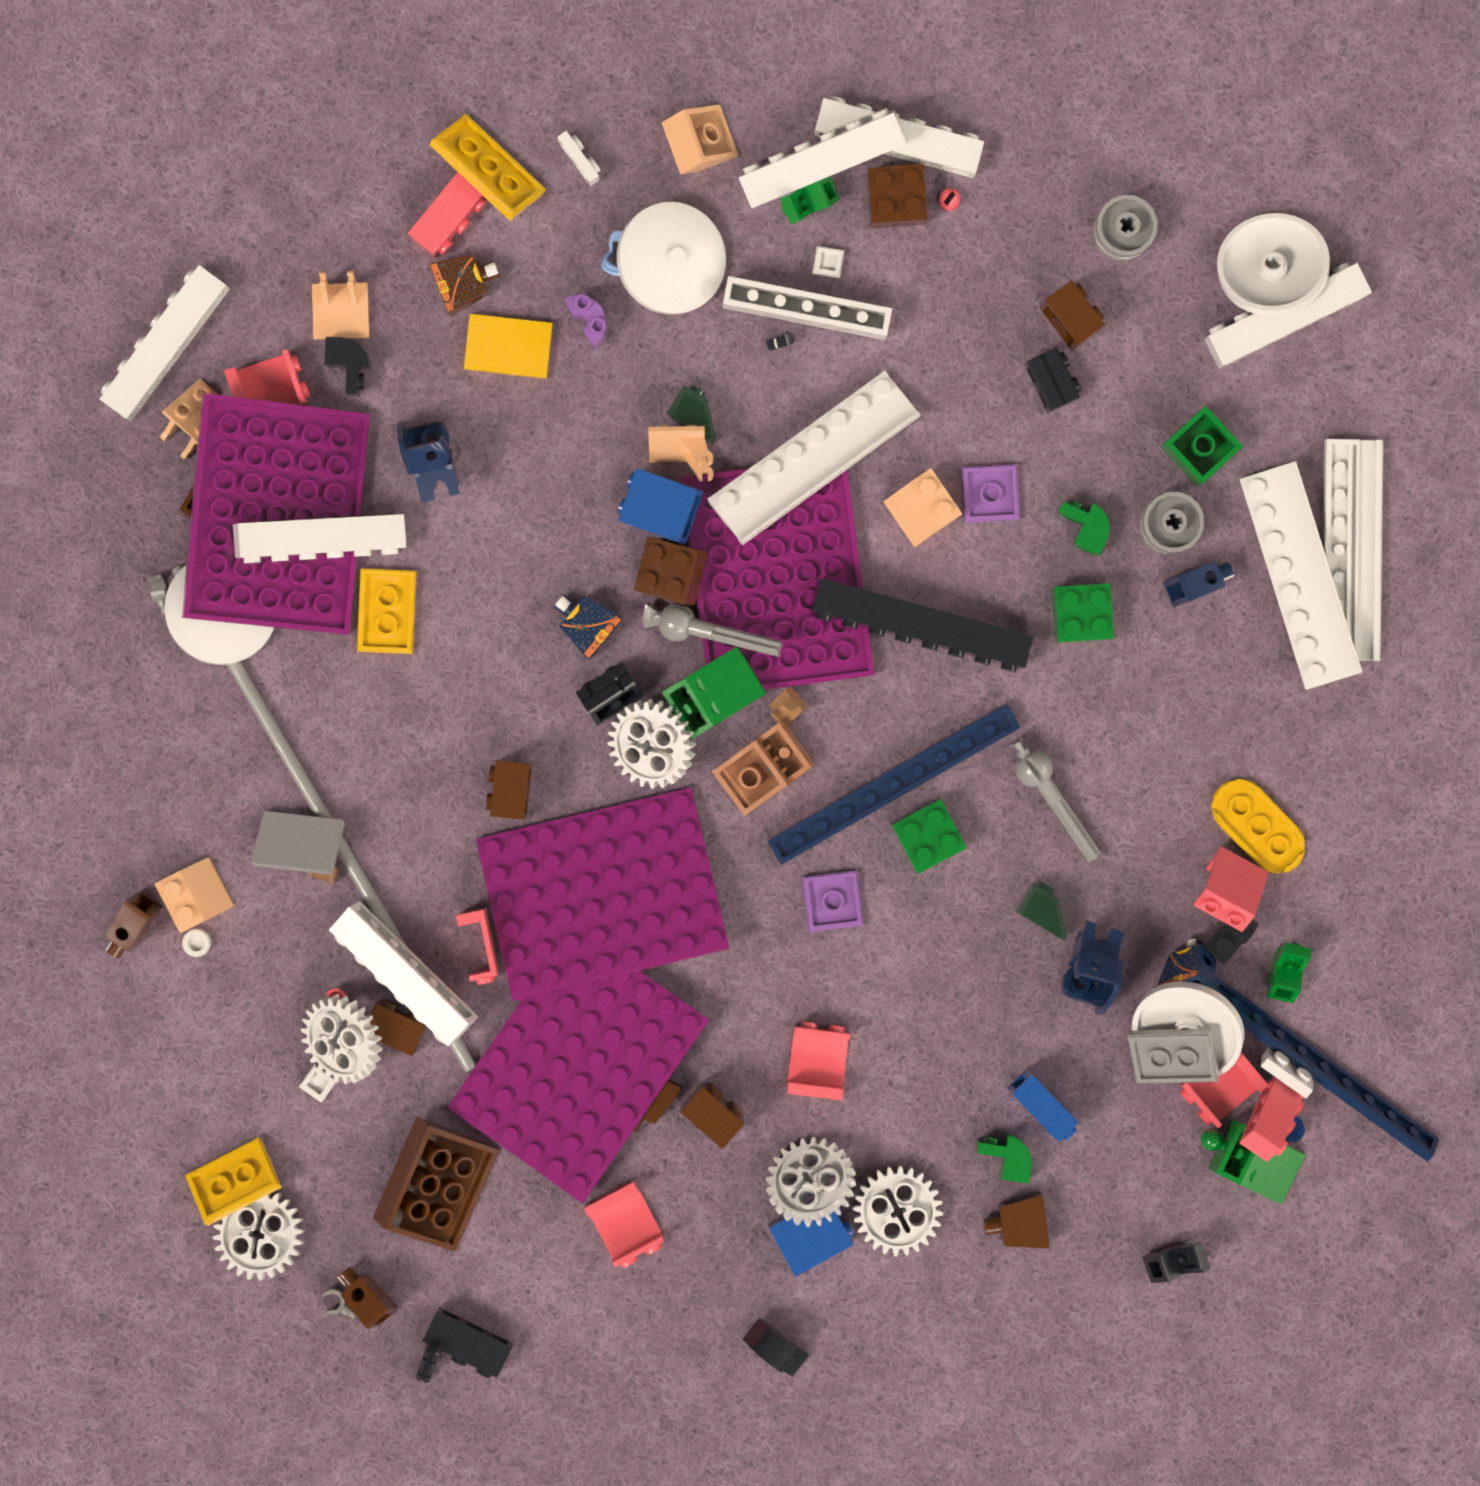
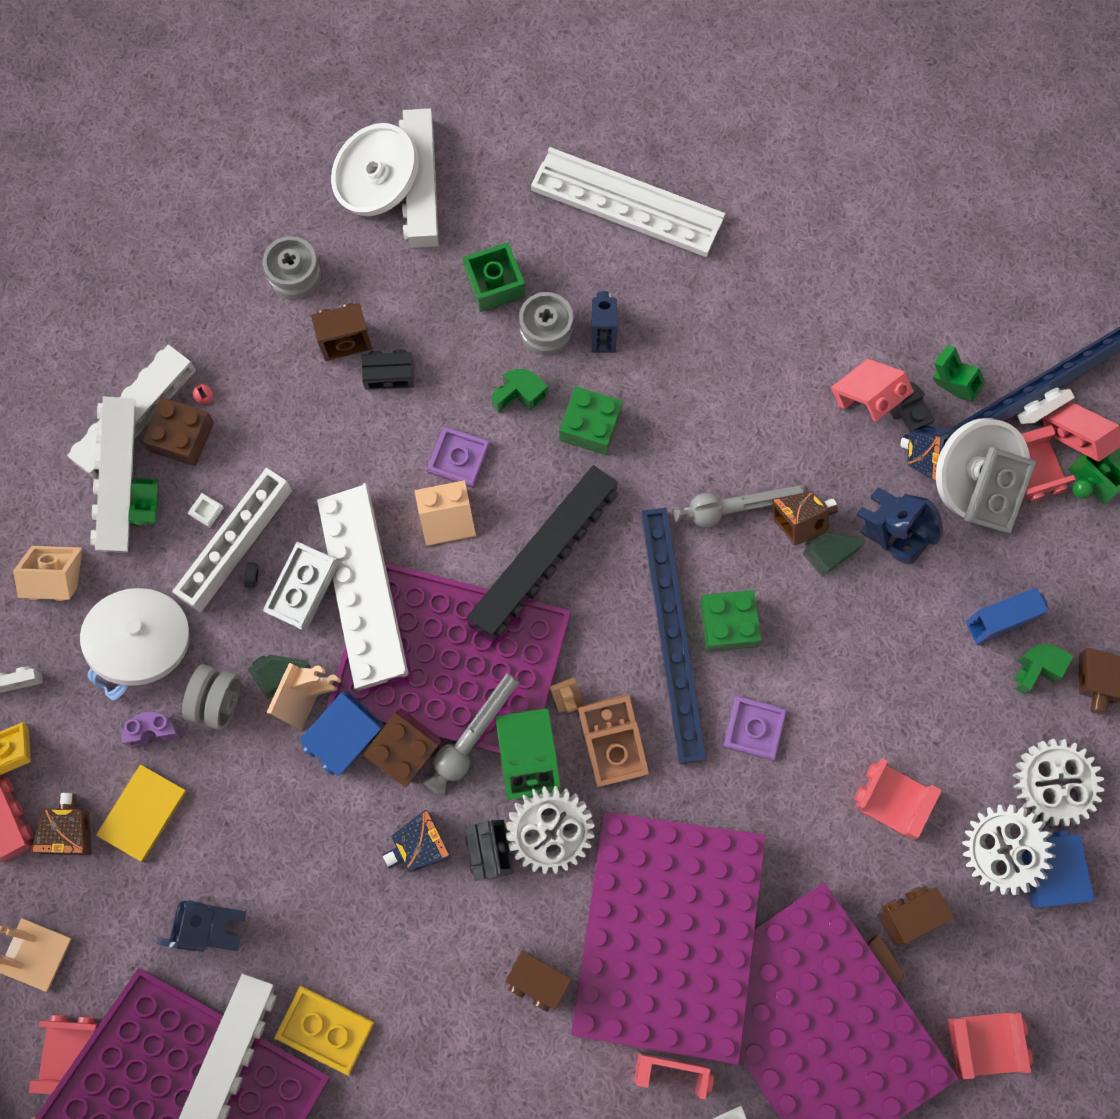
camera: 65 degrees left, 15 degrees down
(348, 355) = (75, 965): black brick -> none
(641, 364) = (211, 697): none -> light grey wheel
(788, 397) = (301, 586): none -> tile
(1066, 868) = (803, 515): none -> reddish brown torso
(1258, 826) = (824, 355): yellow tile -> none
(1300, 575) = (632, 243): white plate -> none

